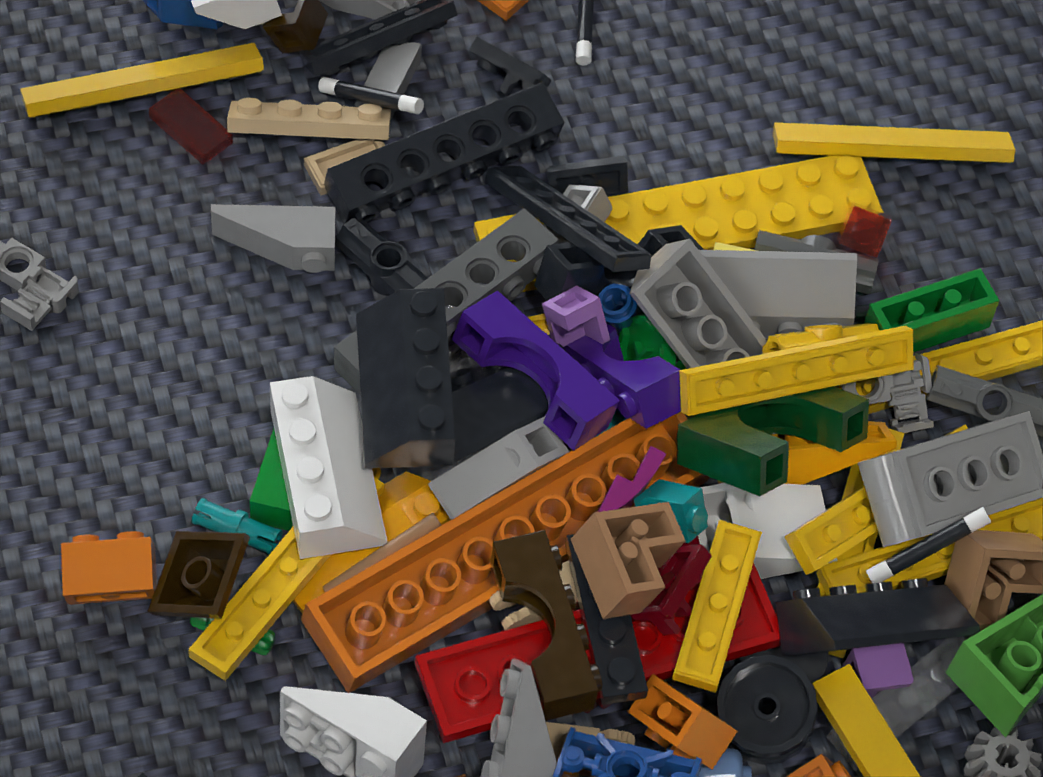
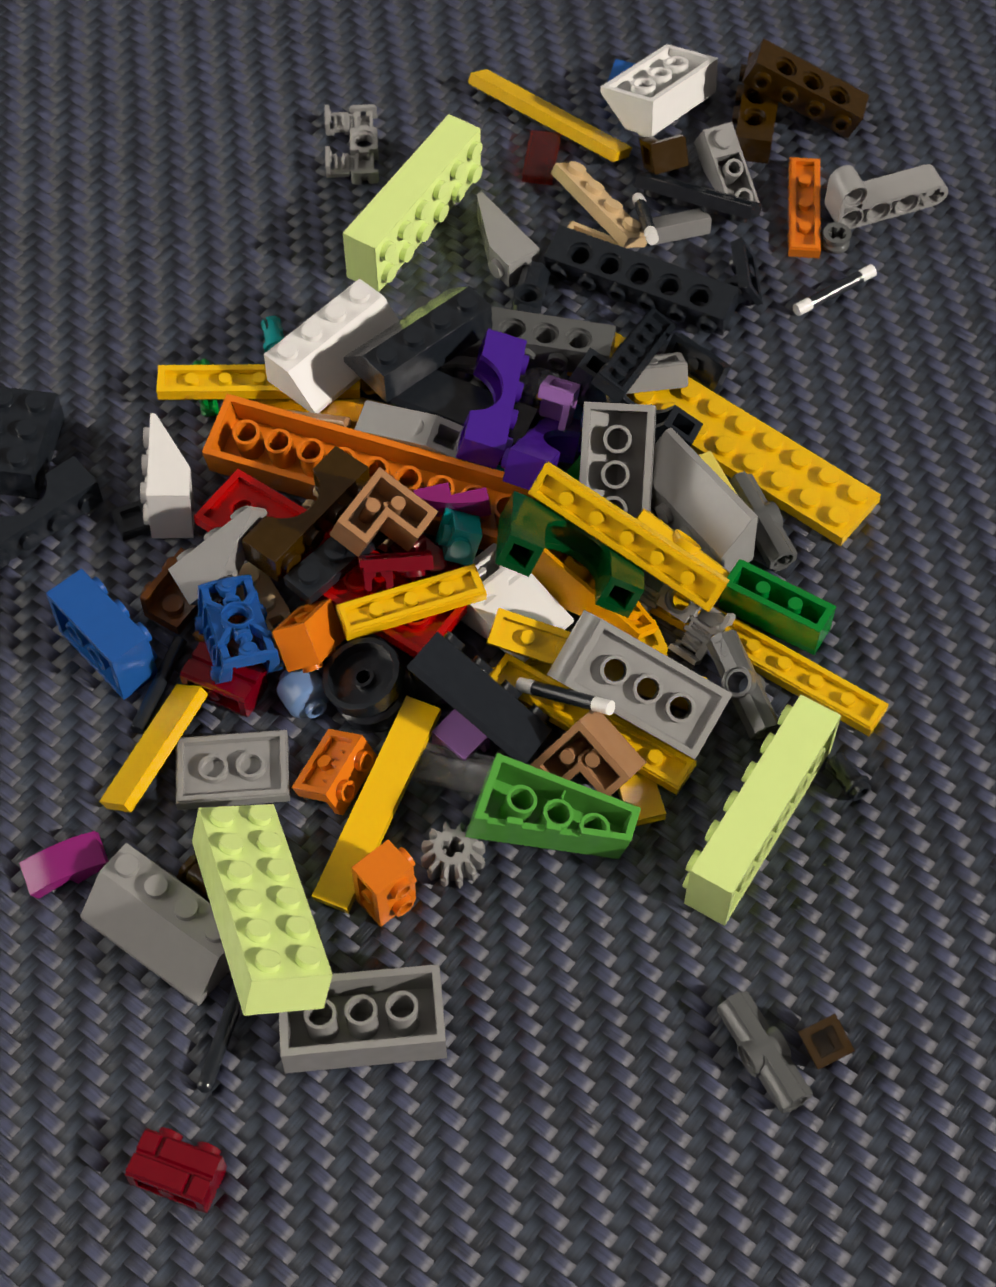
camera: 60 degrees right, 0 degrees up
(108, 568) = (188, 303): orange brick -> none
(172, 273) = (413, 203): none -> yellowish green brick
(199, 574) = (214, 342): dark brown slope -> none
(864, 229) = (809, 528): clear red brick -> none
(893, 142) = (911, 512): yellow tile -> none

